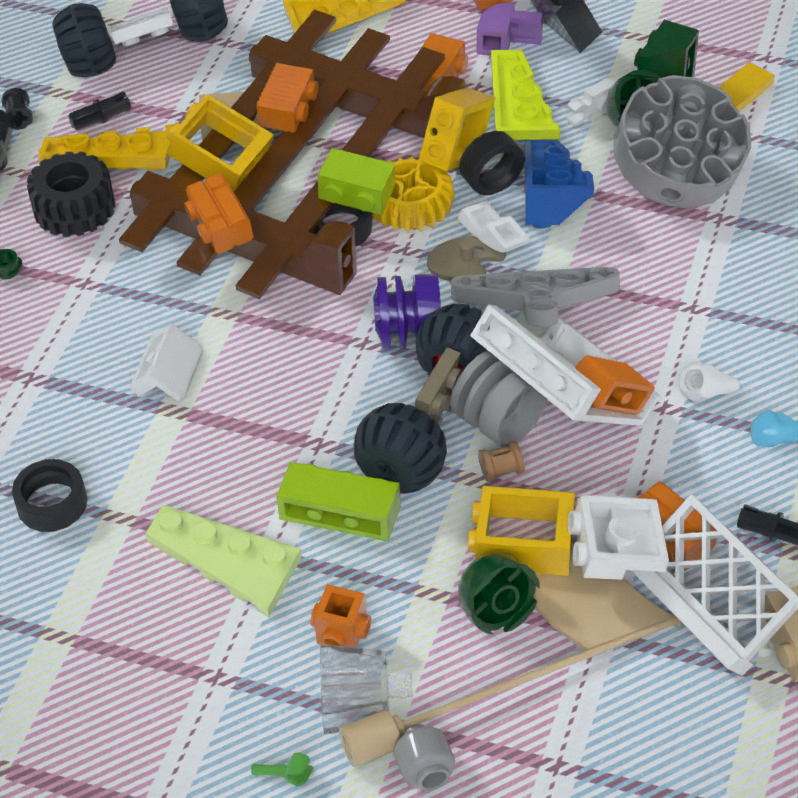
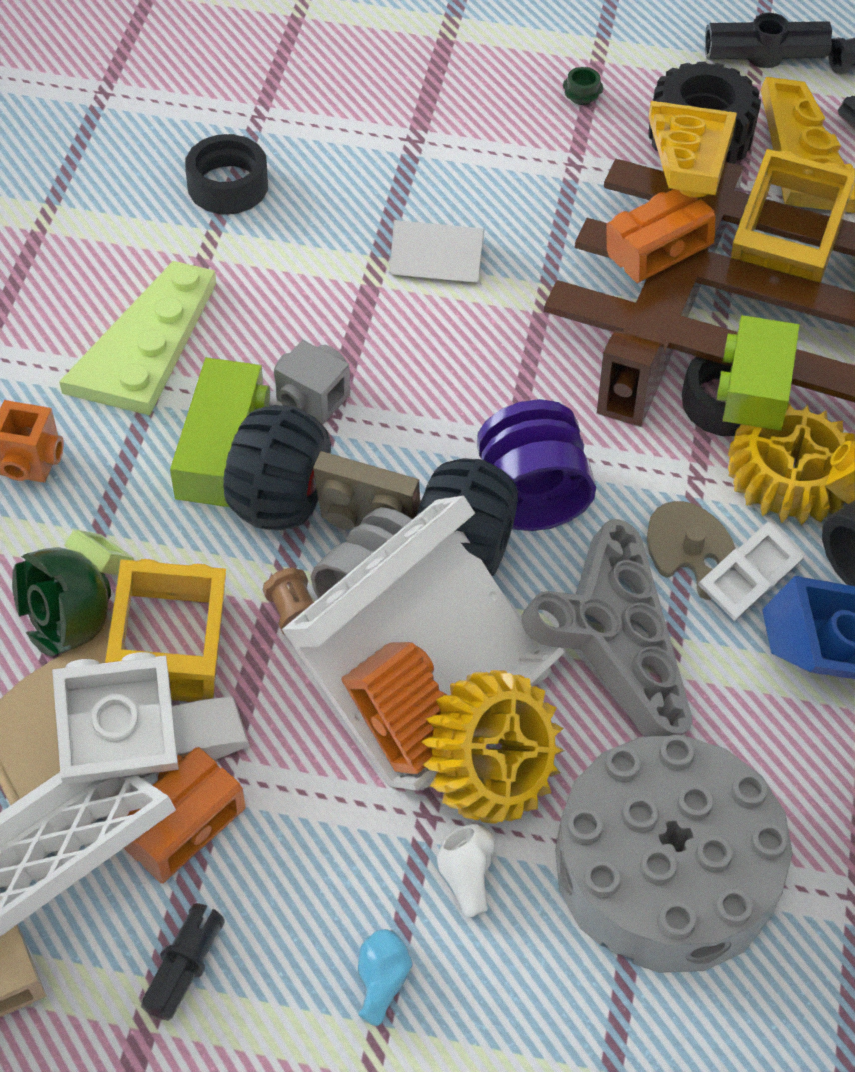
camera: 80 degrees right, 5 degrees up
(144, 177) = (691, 145): none -> yellow wing
(296, 440) = (313, 379): none -> light grey brick
(447, 574) = (98, 550): none -> yellowish green tile
(638, 347) = (493, 781): none -> yellow gear
(701, 284) = (672, 853): none -> light grey brick

